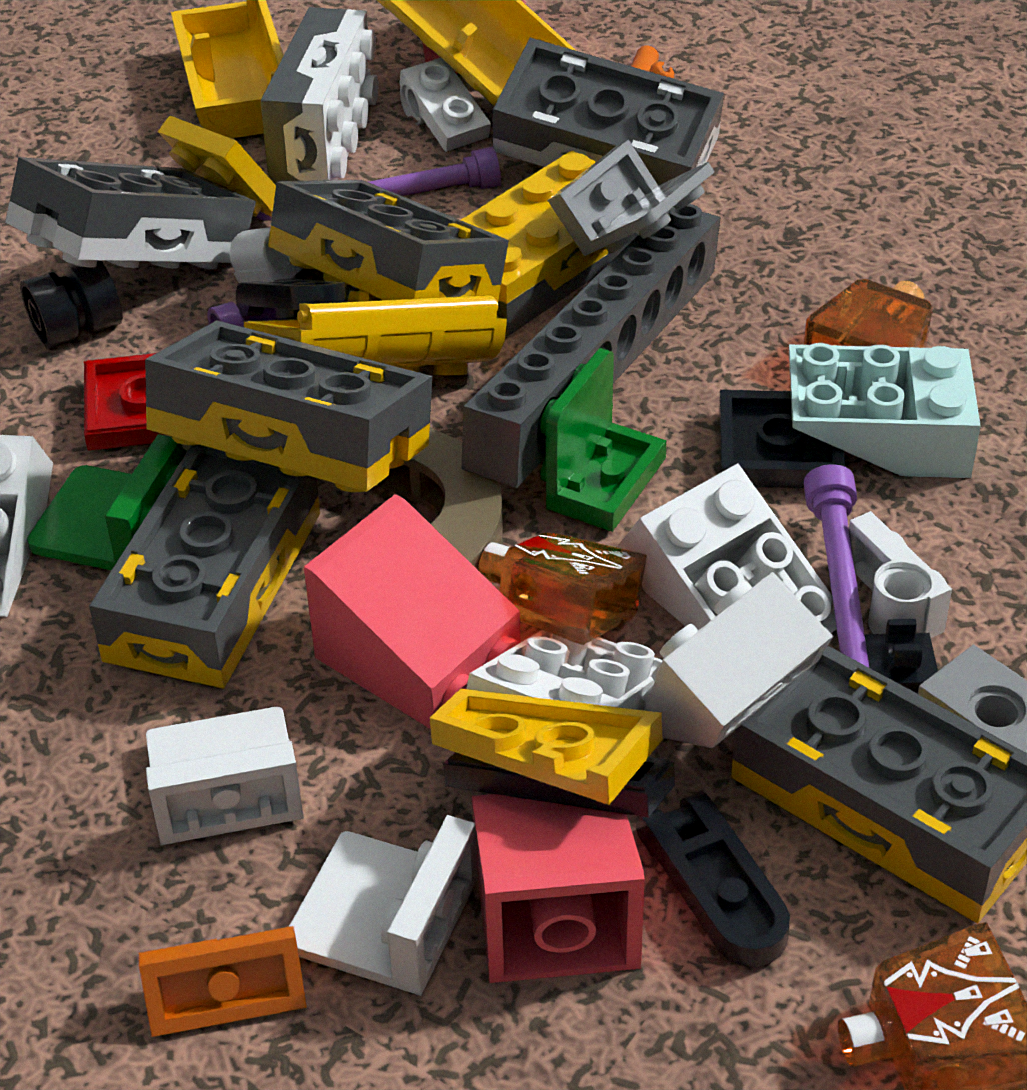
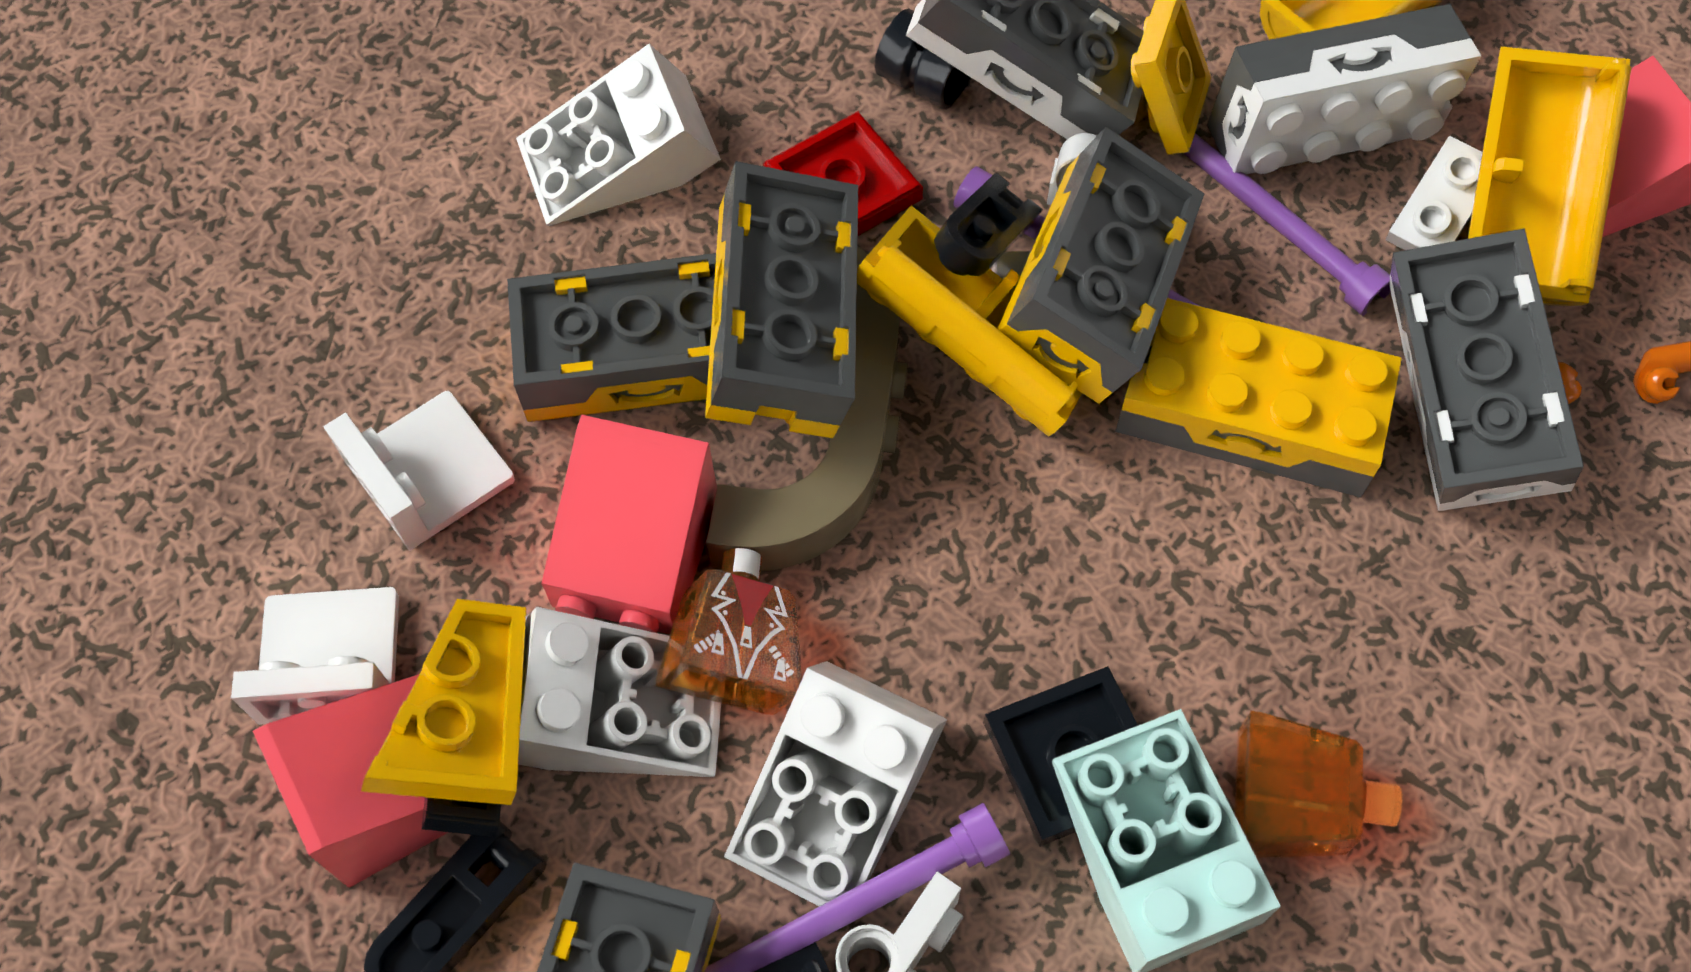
camera: 65 degrees right, 20 degrees up
(103, 508) = (670, 220): green bracket -> none
(221, 980) = (220, 591): orange hinge -> none
(590, 463) = (936, 586): green bracket -> none
(615, 312) = (1098, 515): dark grey brick -> none
(622, 198) = (1297, 448): light grey bracket -> none
(734, 662) = (608, 834): white slope -> none

